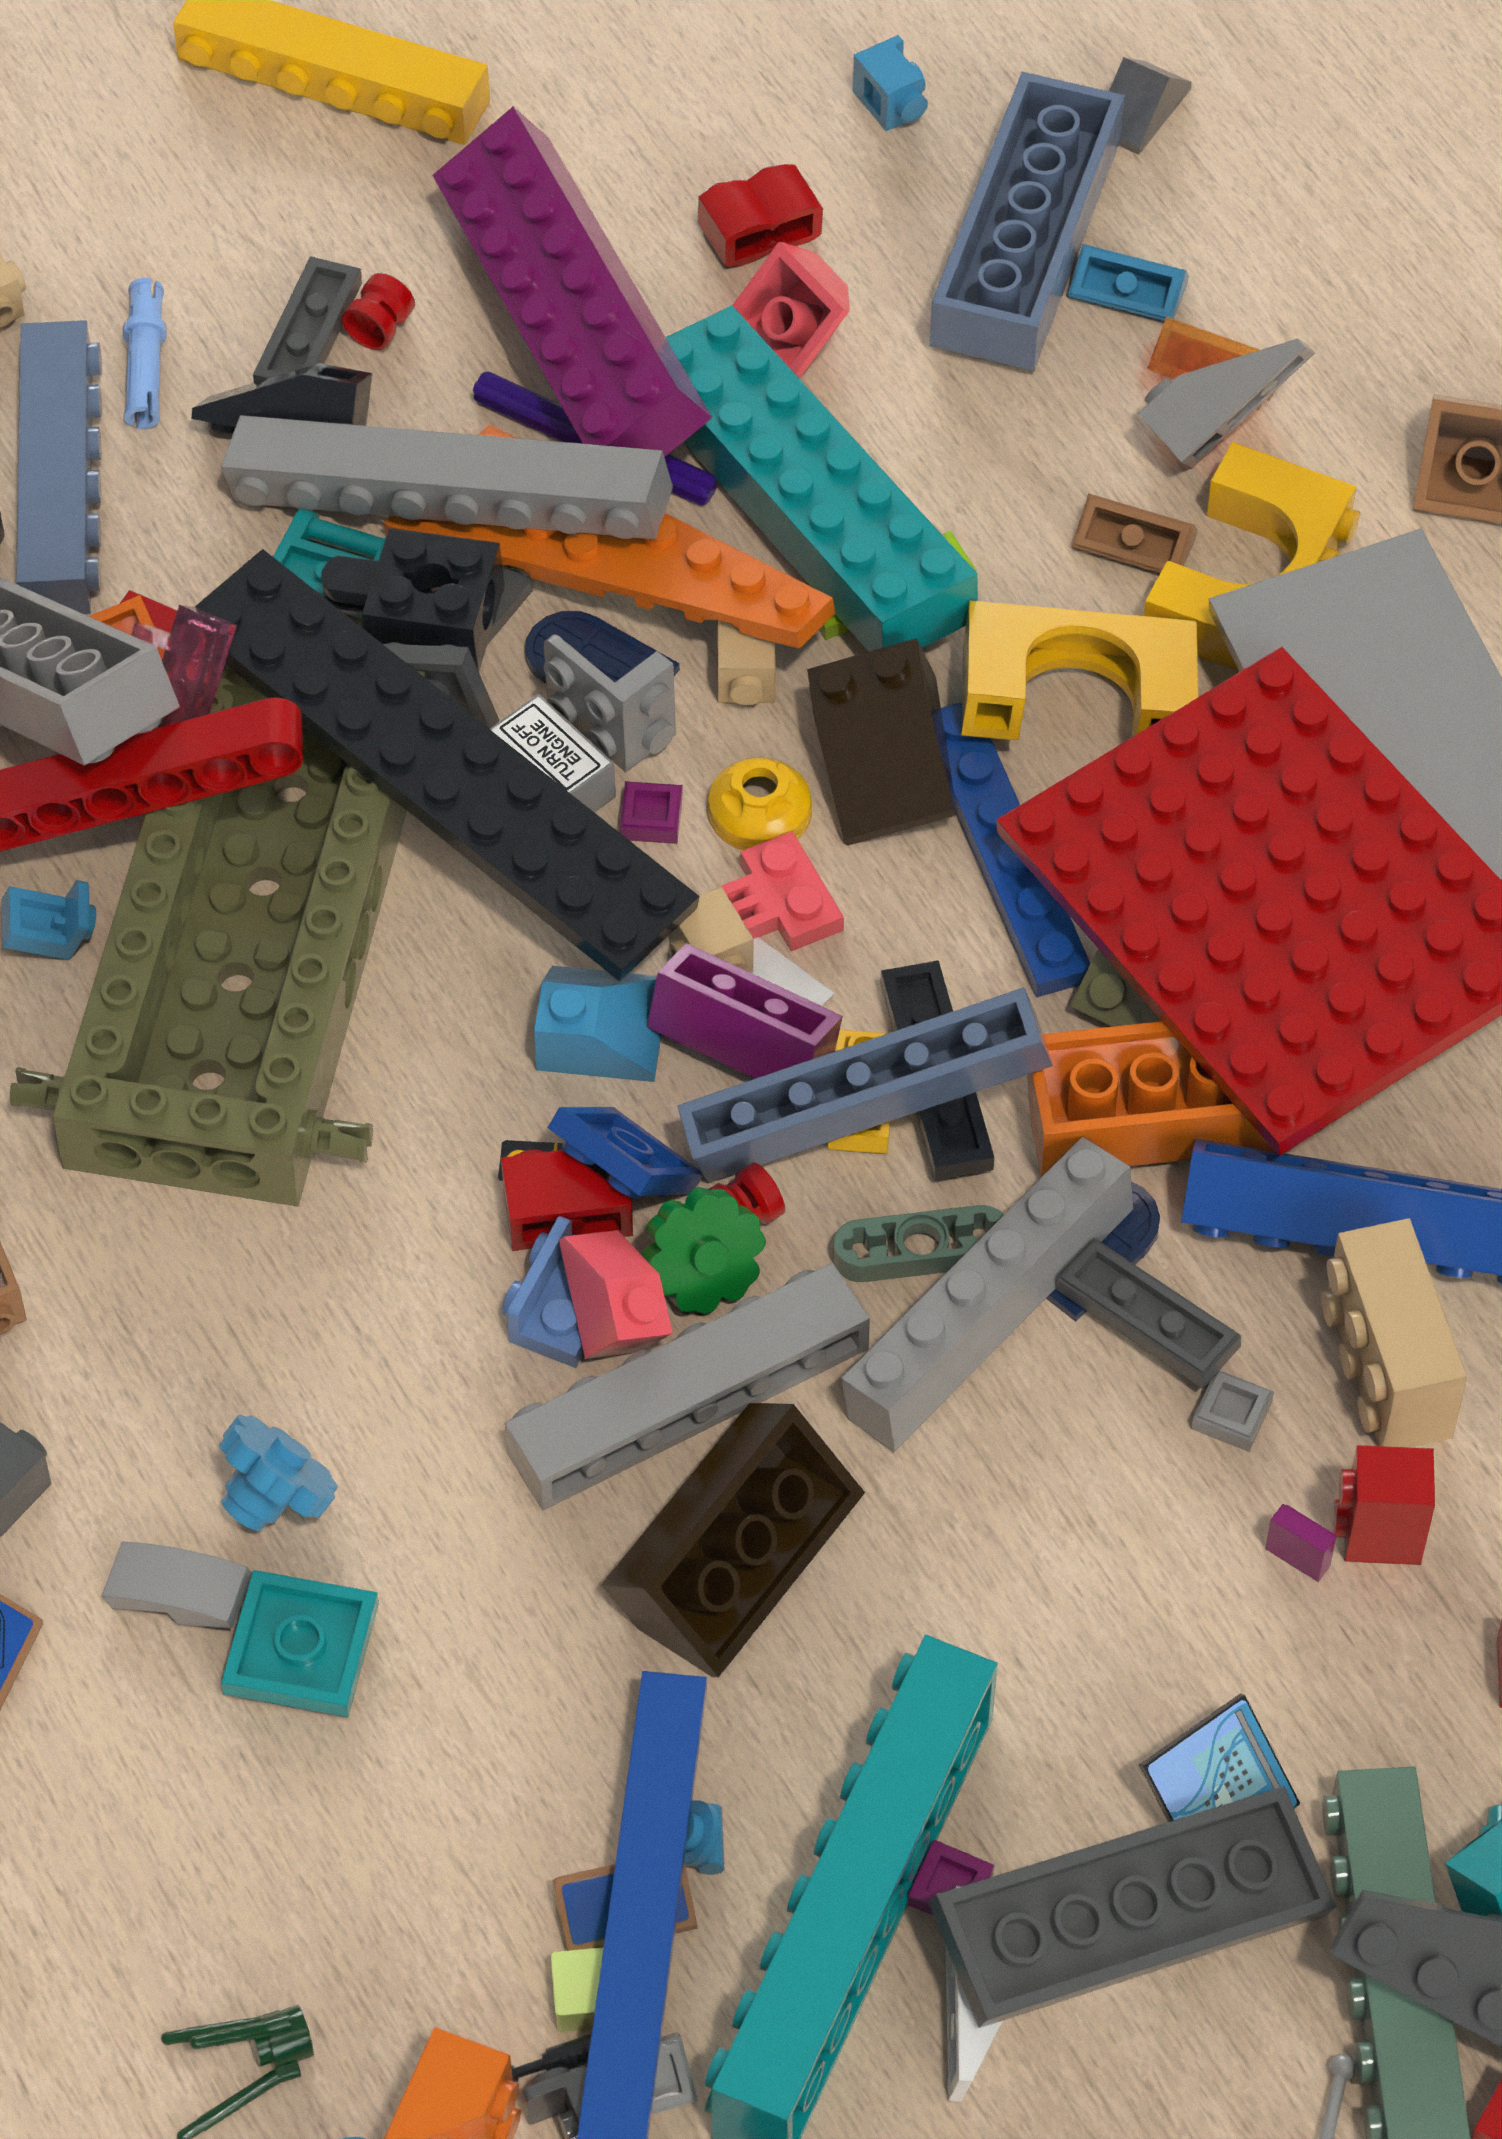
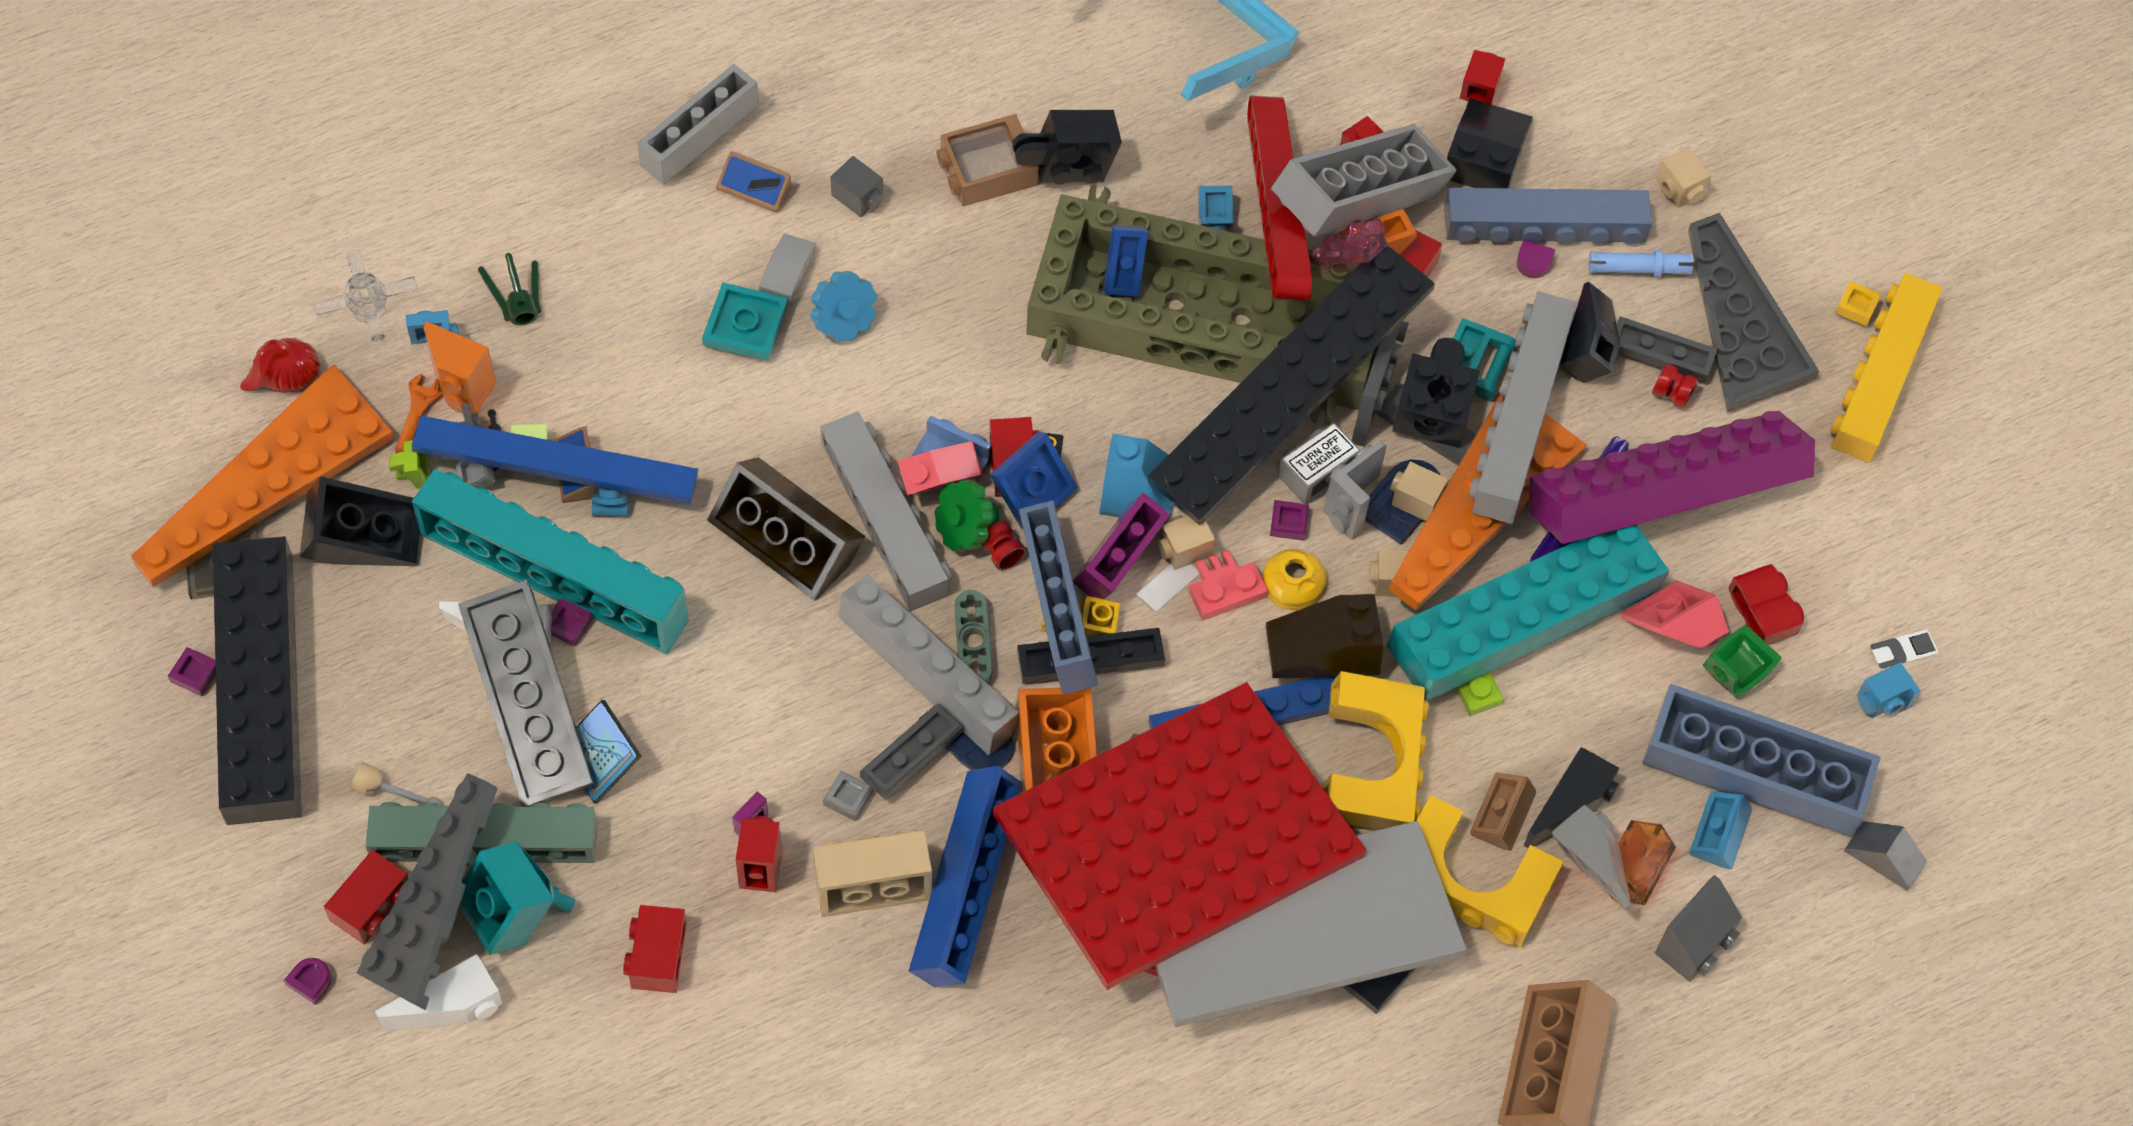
camera: 90 degrees right, 5 degrees up
(134, 492) = (1534, 259): none -> magenta tile
(186, 1020) = (1125, 260): none -> blue plate
(214, 93) = (1858, 303): none -> yellow plate
(245, 229) = (1752, 337): none -> dark grey wing
(604, 622) = (1417, 490): none -> tan brick
(804, 75) = (1904, 649): none -> sticker
(861, 242) = (1741, 661): none -> green piece
(1110, 443) = (1585, 782): none -> black slope
(1308, 300) = (1700, 931): none -> dark grey slope

